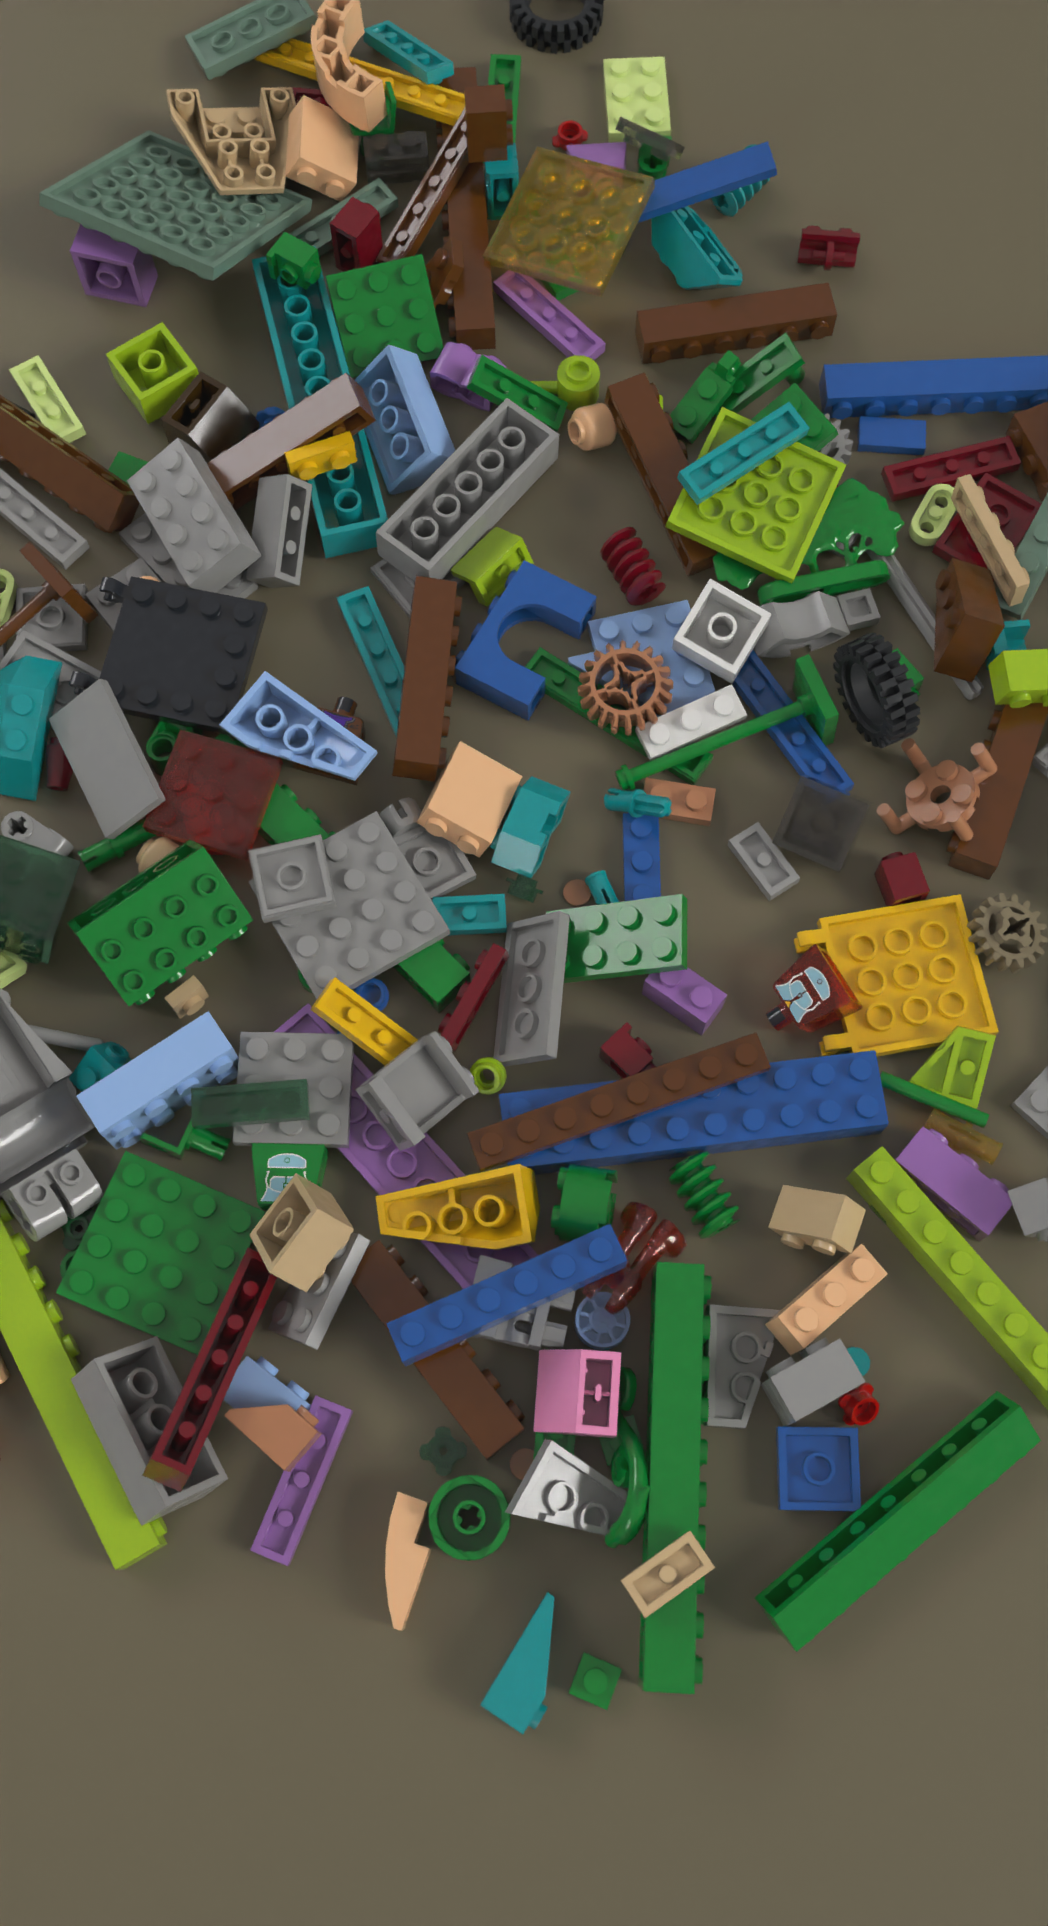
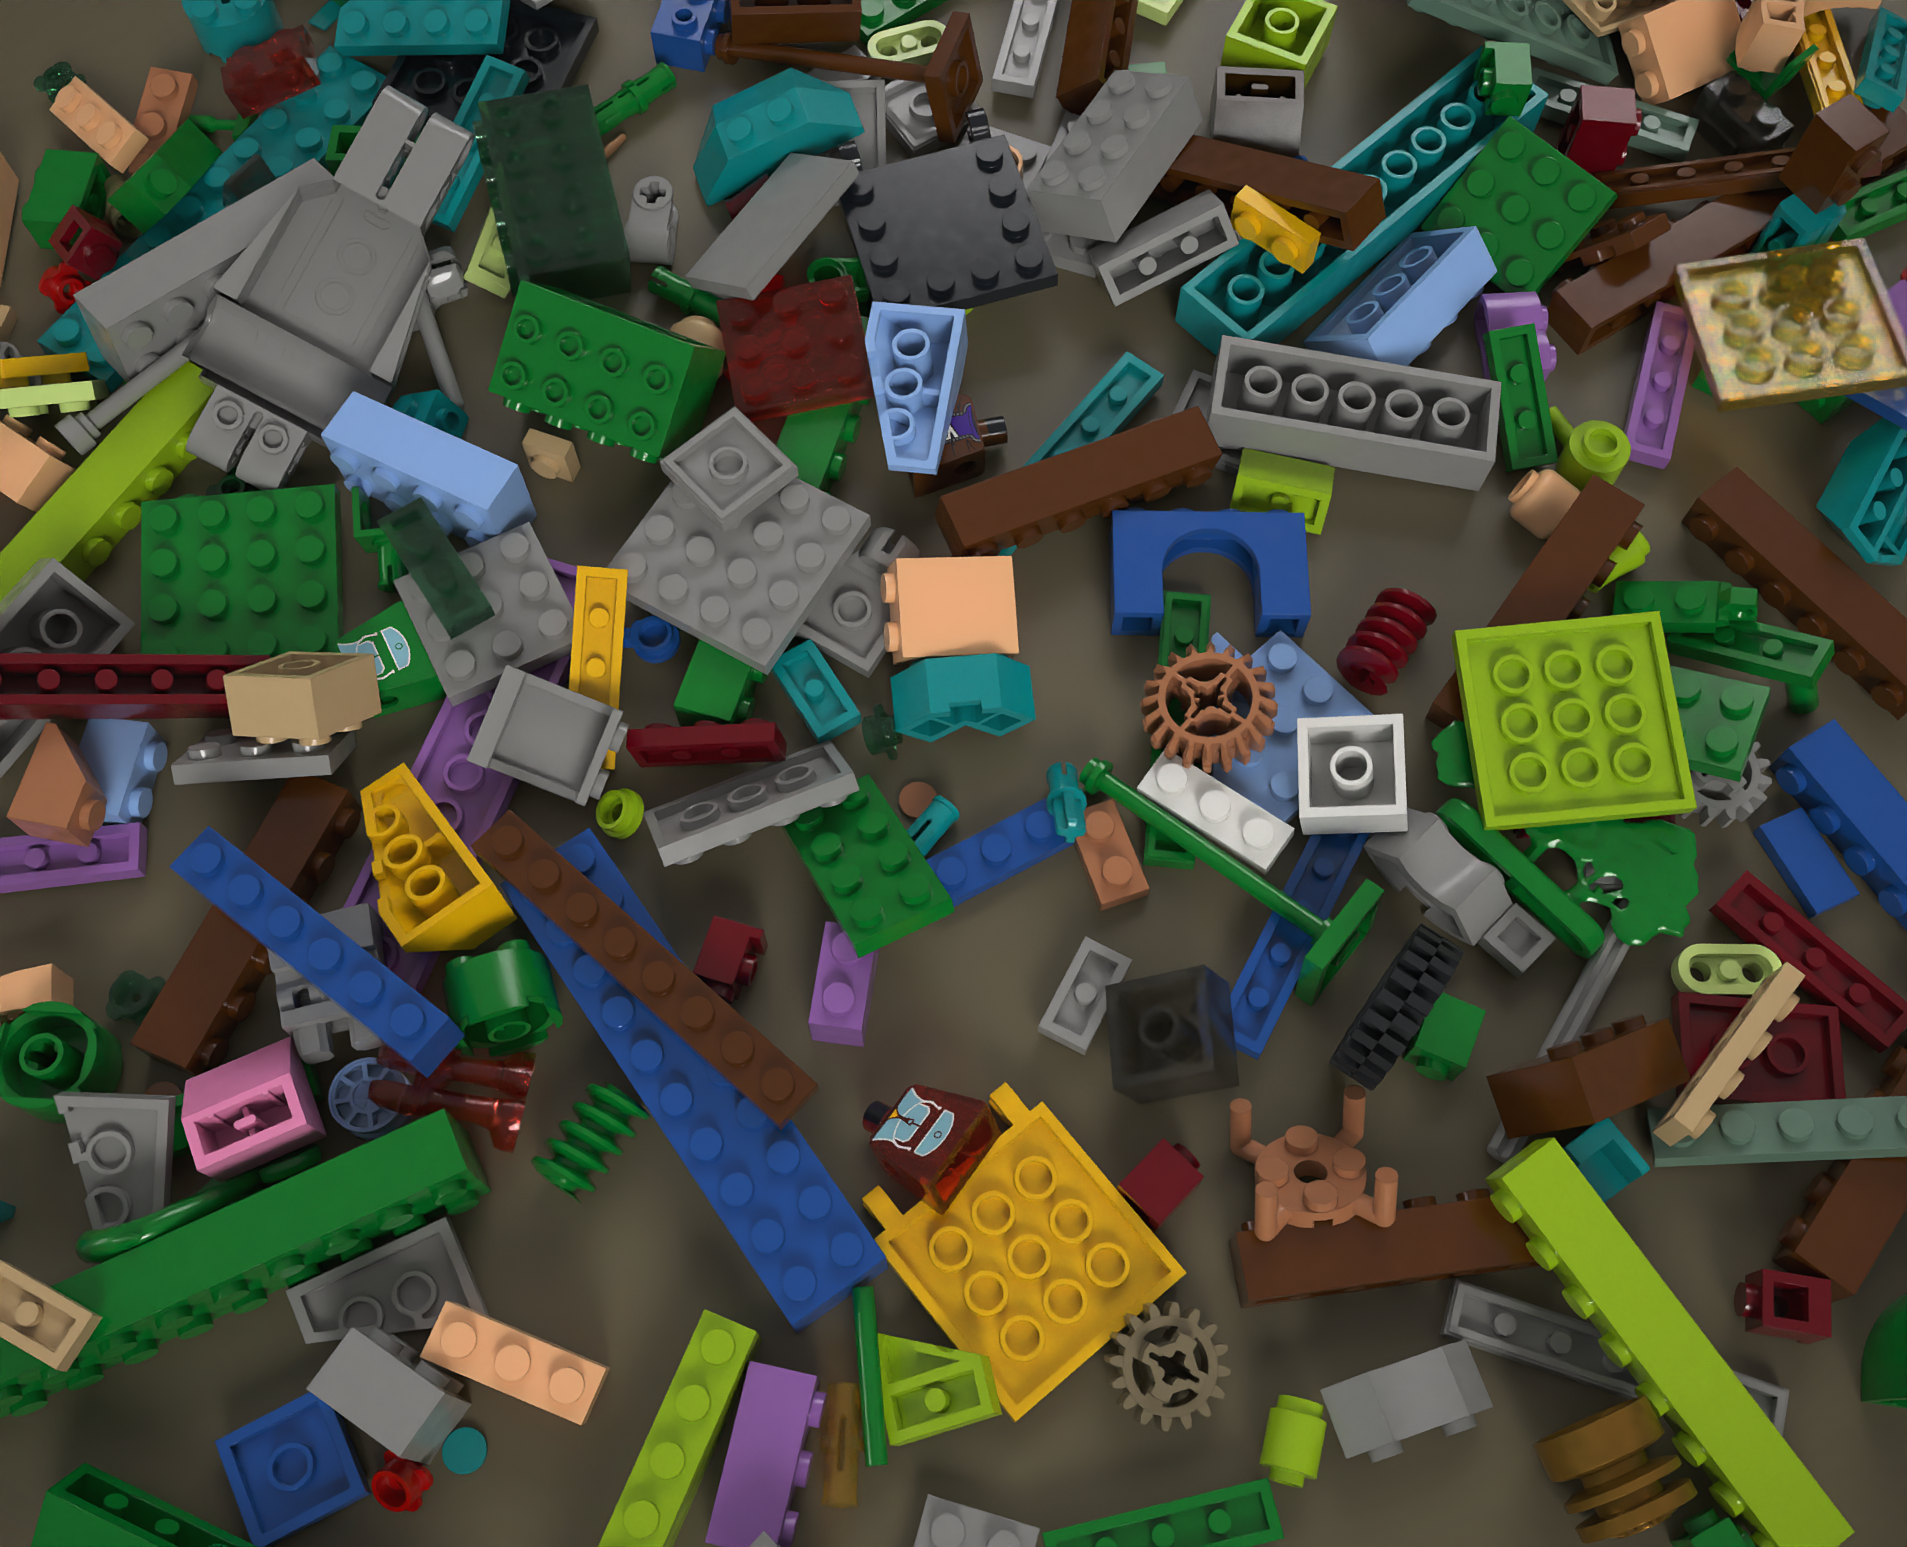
camera: 60 degrees right, 5 degrees down
(743, 453) = (1610, 666): teal plate -> none
(817, 1219) = (613, 1296): tan brick -> none

